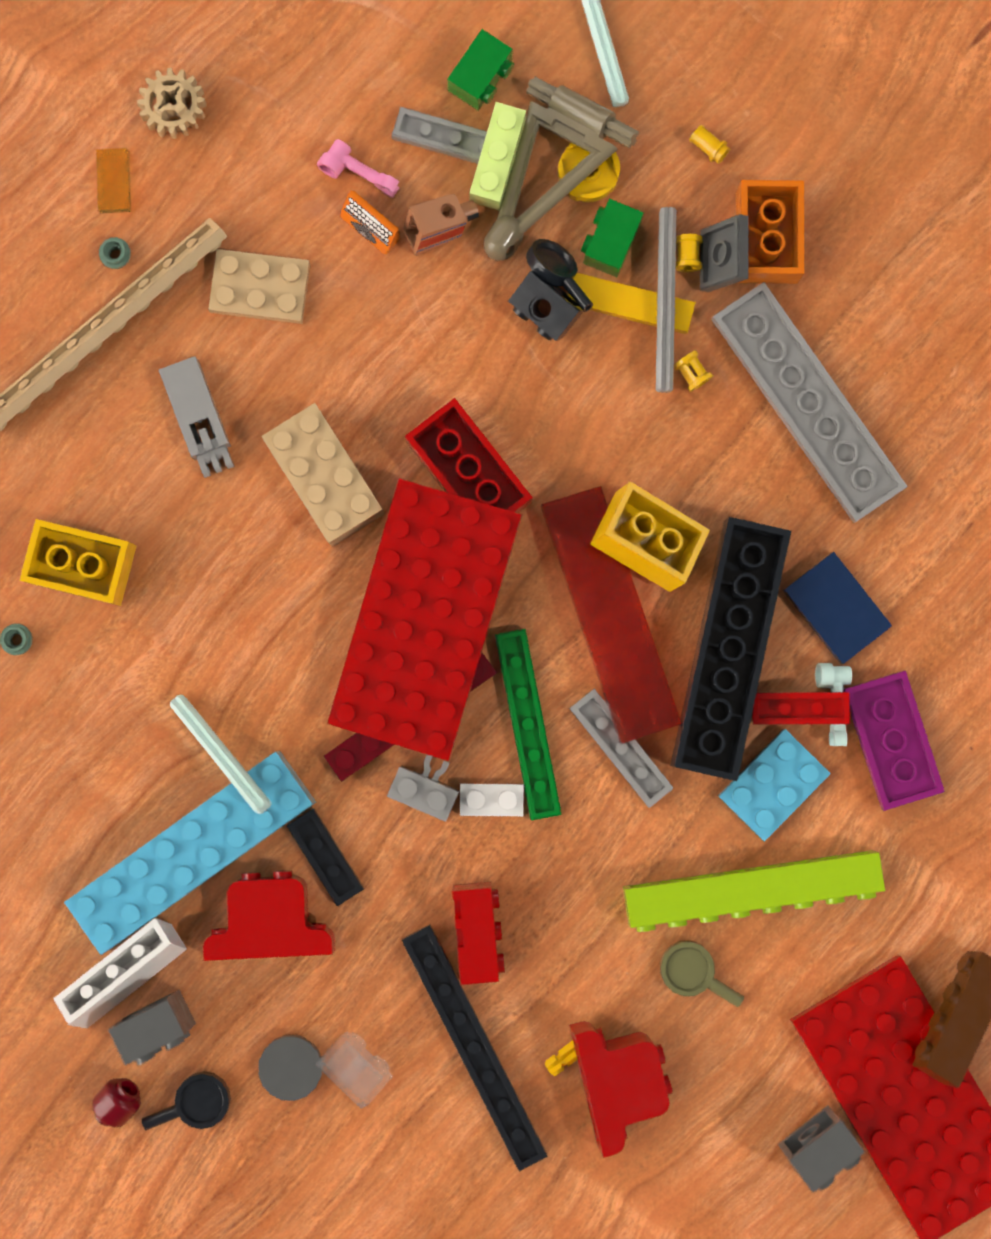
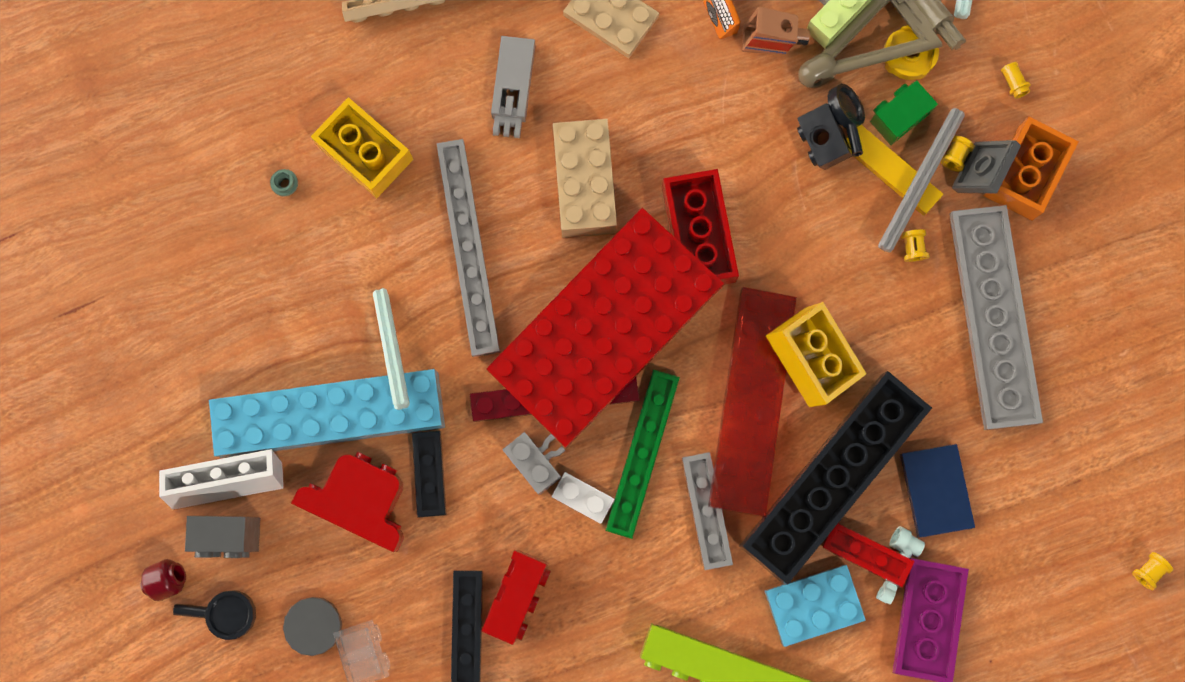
camera: 30 degrees right, 5 degrees down
(241, 608) = (468, 248): none -> light grey plate

